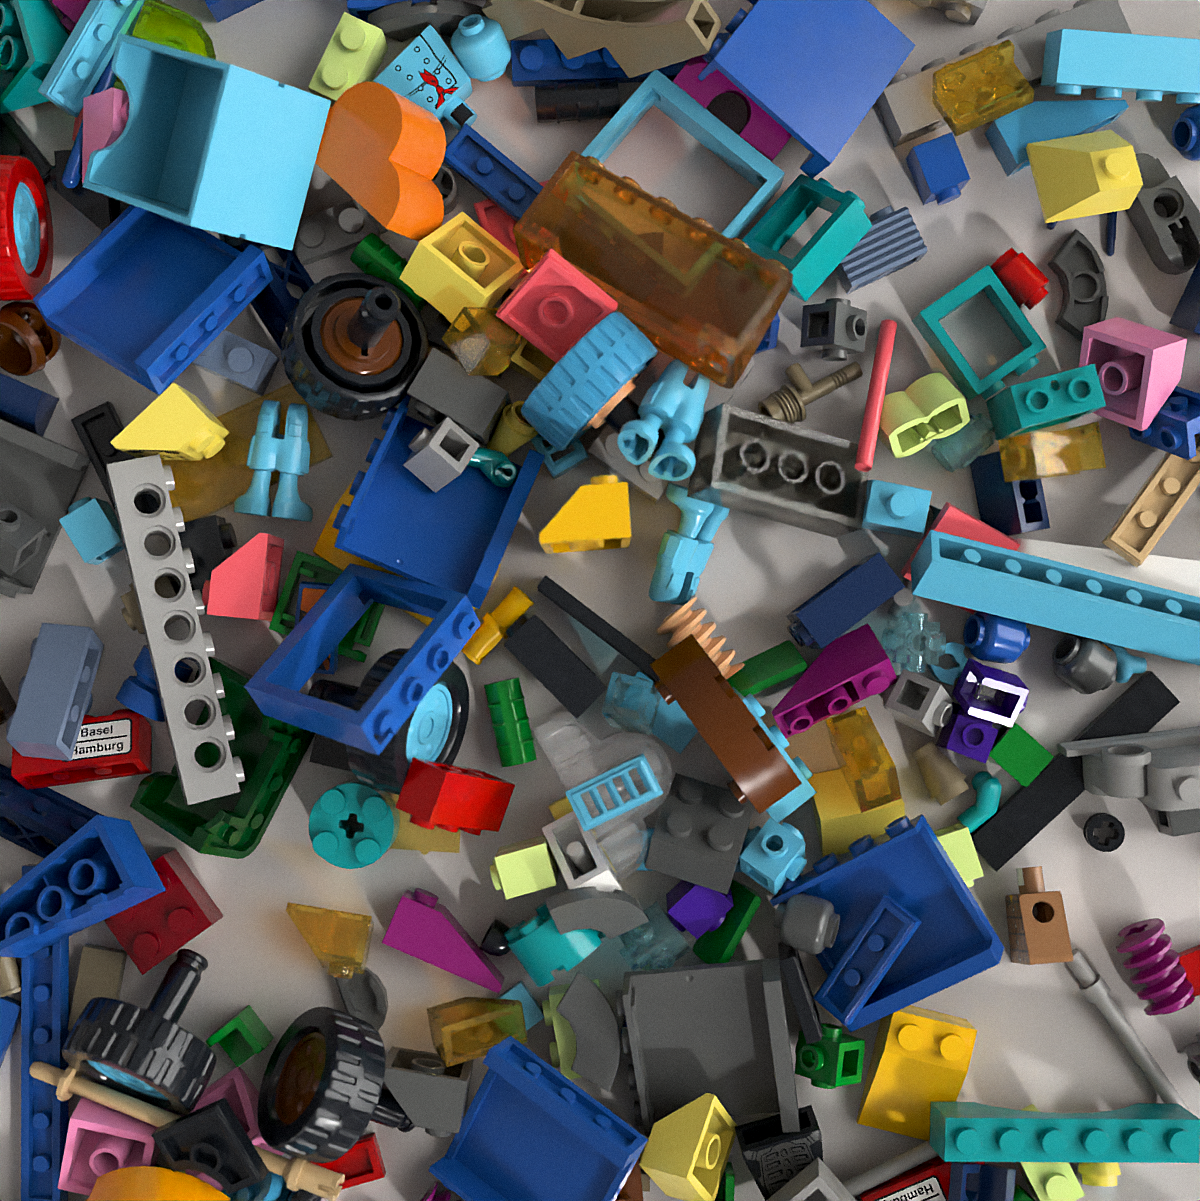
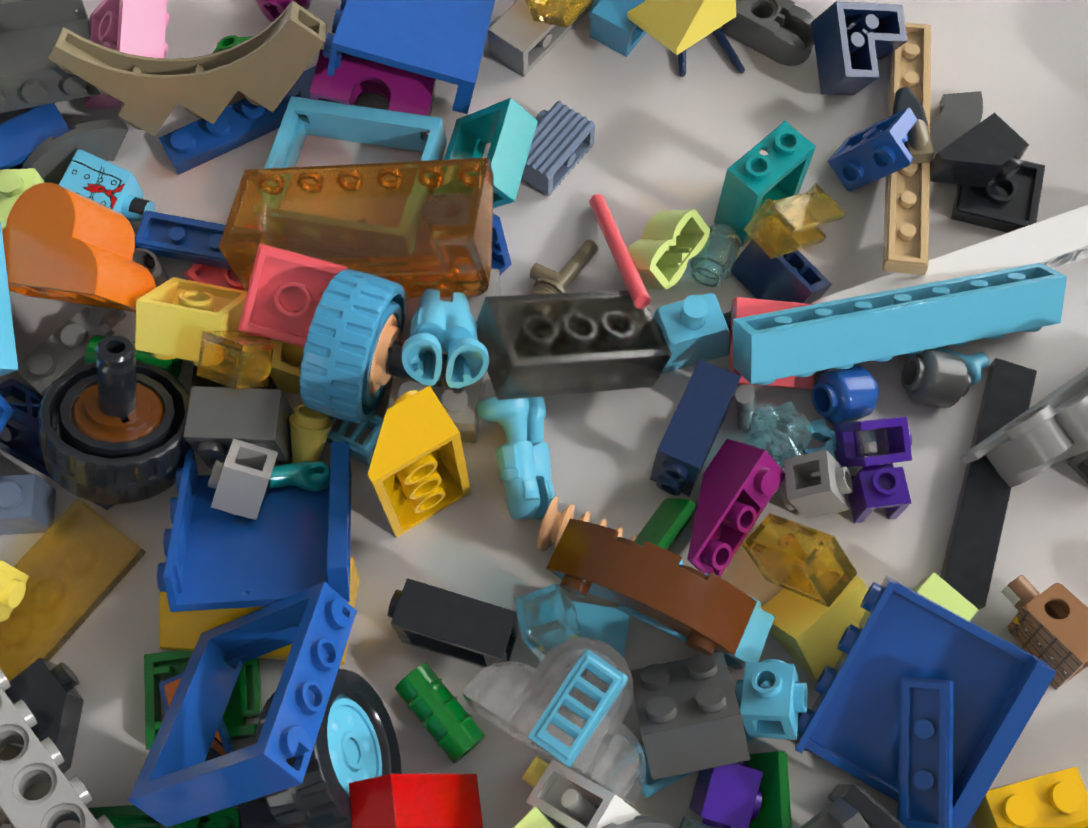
camera: 30 degrees left, 20 degrees down
(247, 581) = (98, 706): coral slope -> none
(281, 453) = (77, 571): medium azure piece -> none
(481, 47) = (133, 148): medium azure head -> none
(496, 624) = (377, 628): yellow pin -> none
(577, 100) = (236, 155): black axle -> none
(597, 625) = (477, 572): black tile -> none
(807, 923) = (844, 750): dark grey head -> none
(834, 329) = (552, 218): dark grey brick -> none
(938, 169) = (567, 69): blue brick -> none
(939, 773) = (876, 543): dark tan cone -> none
(949, 355) = (660, 194): teal window -> none
(986, 802) = (932, 544): teal arm -> none
(1019, 754) = (934, 483): green panel -> none
(1021, 278) = (682, 116): red brick -> none
(1082, 284) = (736, 102): dark grey tile -> none
(1111, 843) = (1057, 505): black bush -> none
(1134, 368) = (827, 120): bright pink slope -> none

